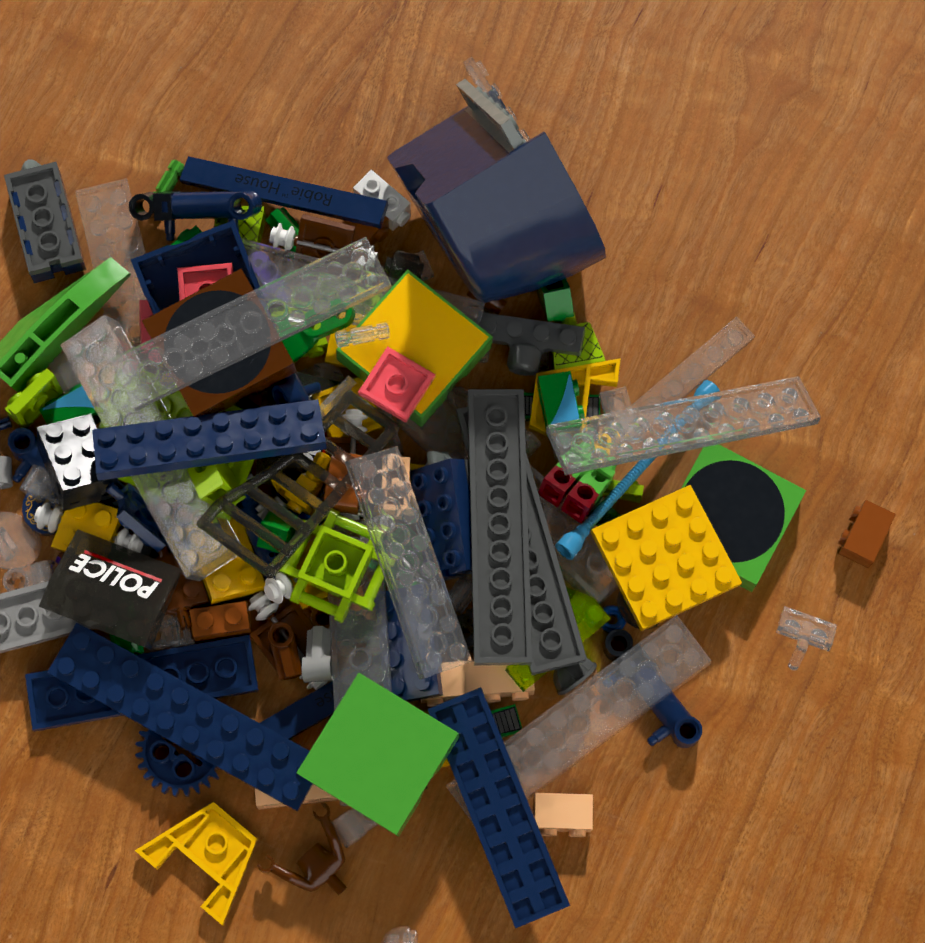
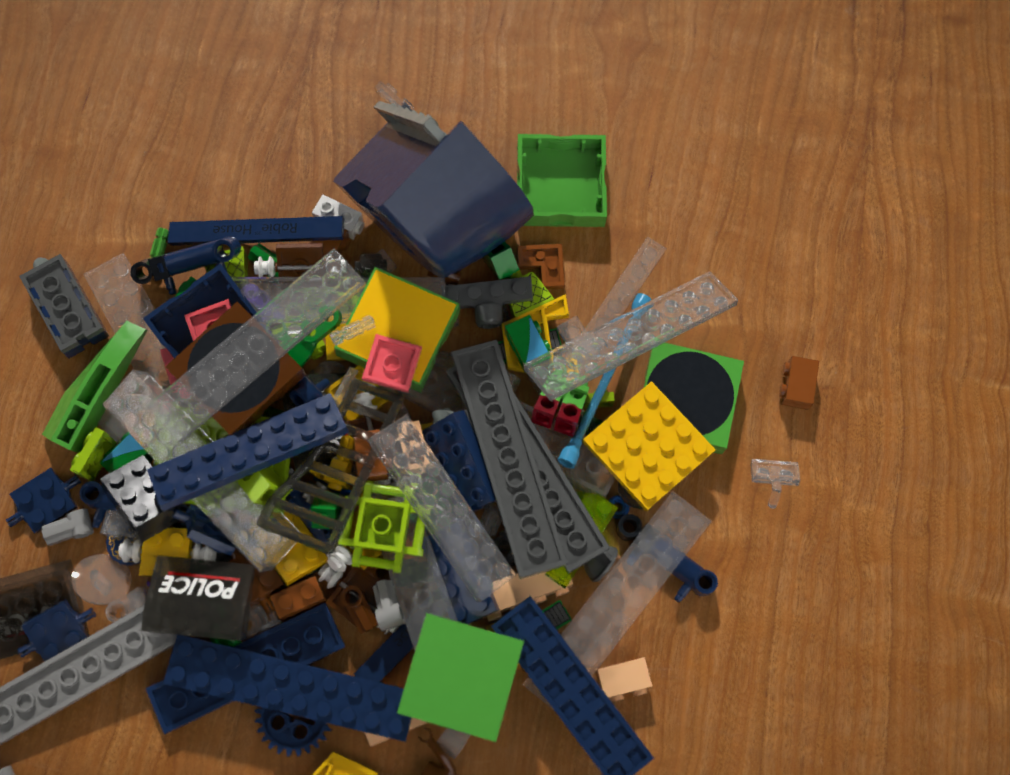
camera: 15 degrees left, 0 degrees up
(611, 311) = (544, 257): none -> dark orange plate
(655, 223) = (563, 179): none -> bright green tile

